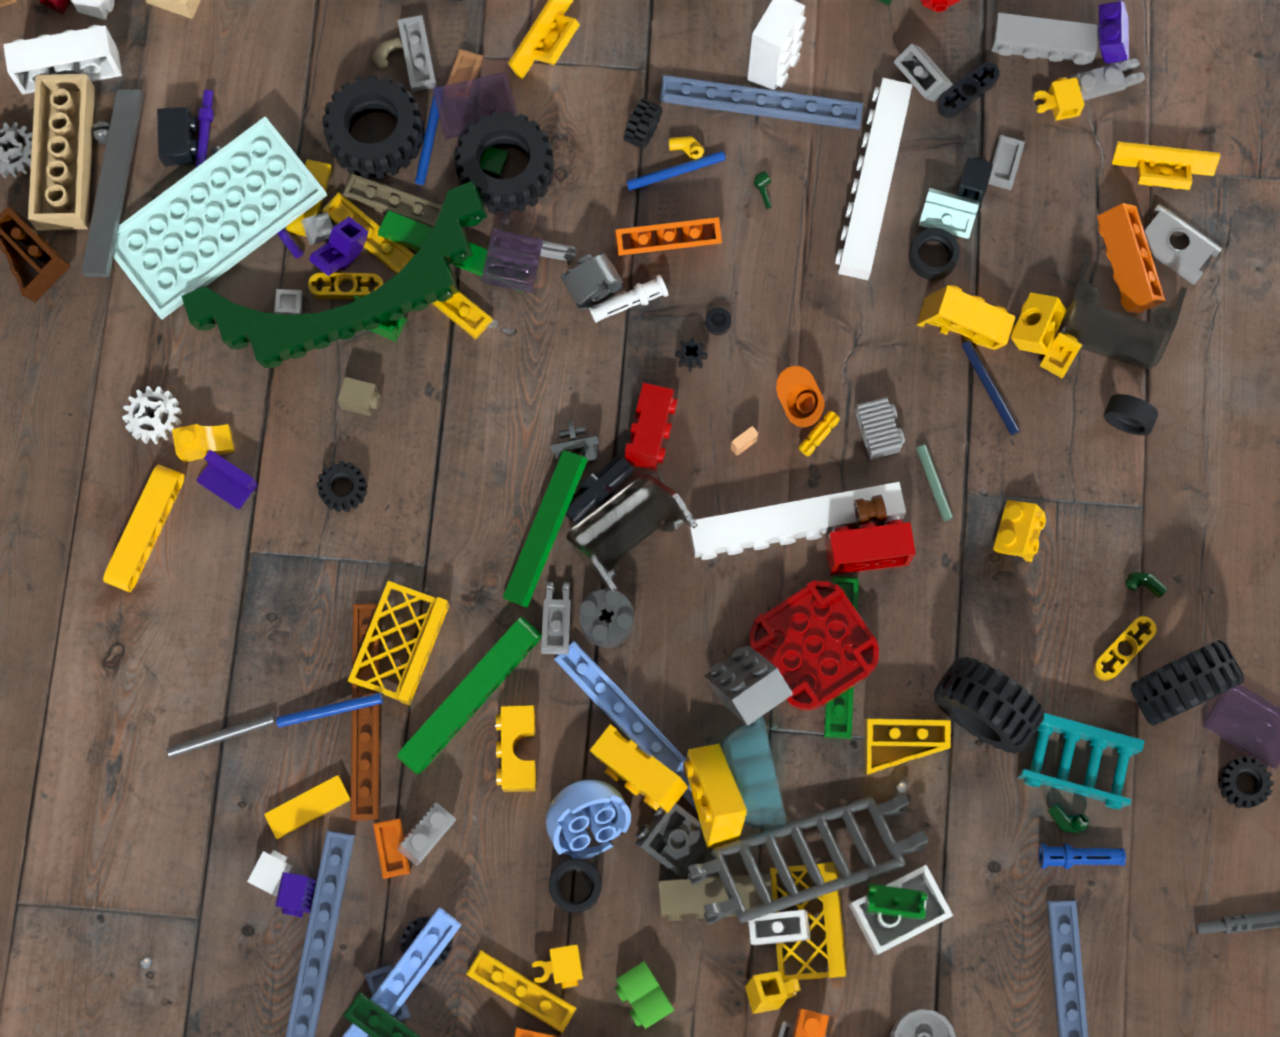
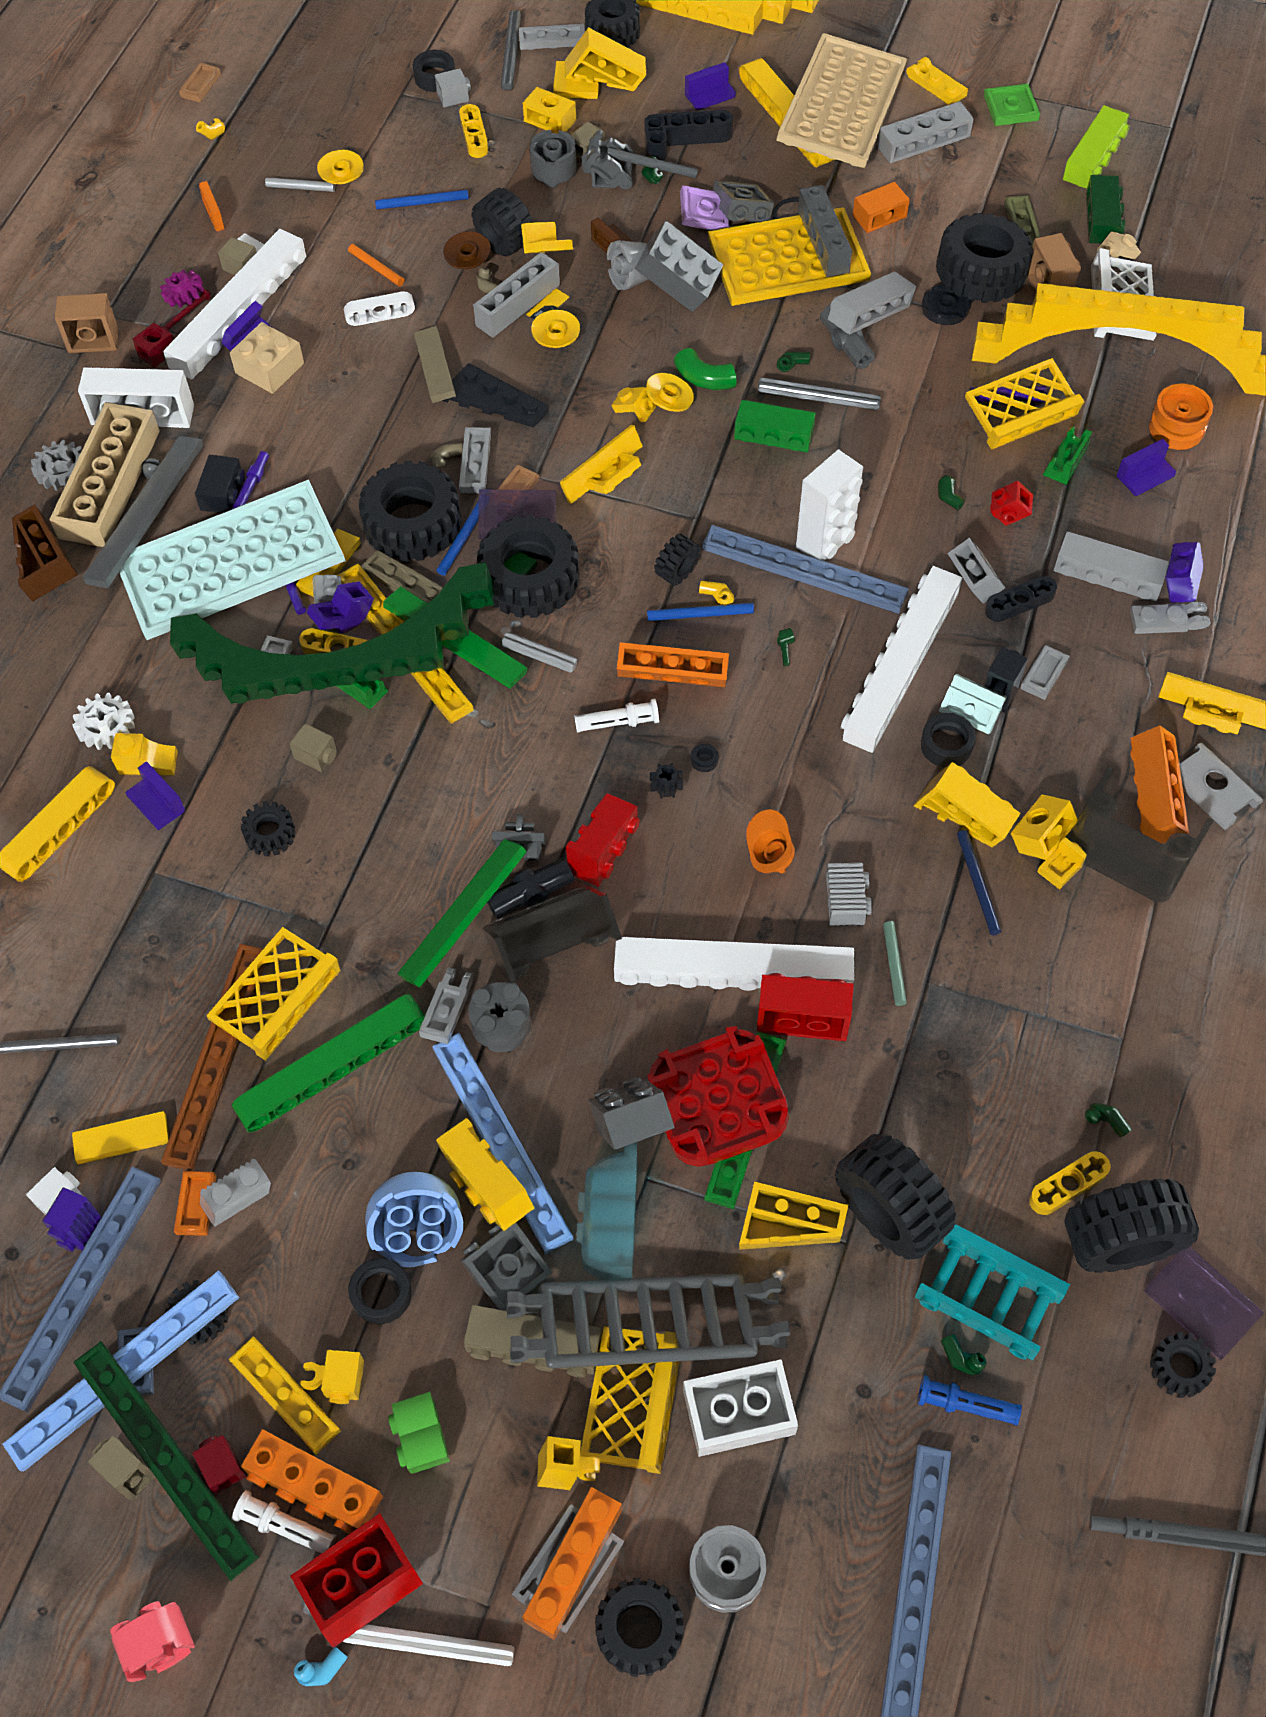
camera: 15 degrees right, 15 degrees down
(329, 710) = (178, 1042): blue bar -> none
(512, 261) = (508, 655): clear purple slope -> none
(515, 724) = (367, 1103): yellow arch -> none
(592, 280) = (583, 687): dark grey brick -> none
(715, 795) = (562, 1225): yellow wedge -> none
(744, 441) = (699, 874): light nougat tile -> none
(780, 928) = (593, 1390): white brick -> none
(819, 433) = (781, 886): yellow axle -> none
(868, 510) = (814, 964): reddish brown wheel -> none
(895, 902) = (733, 1391): green hinge -> none
(1020, 530) = (978, 1030): yellow bracket -> none
(1063, 98) = (1119, 624): yellow brick -> none
(1131, 414) = (1126, 936): black tyre -> none

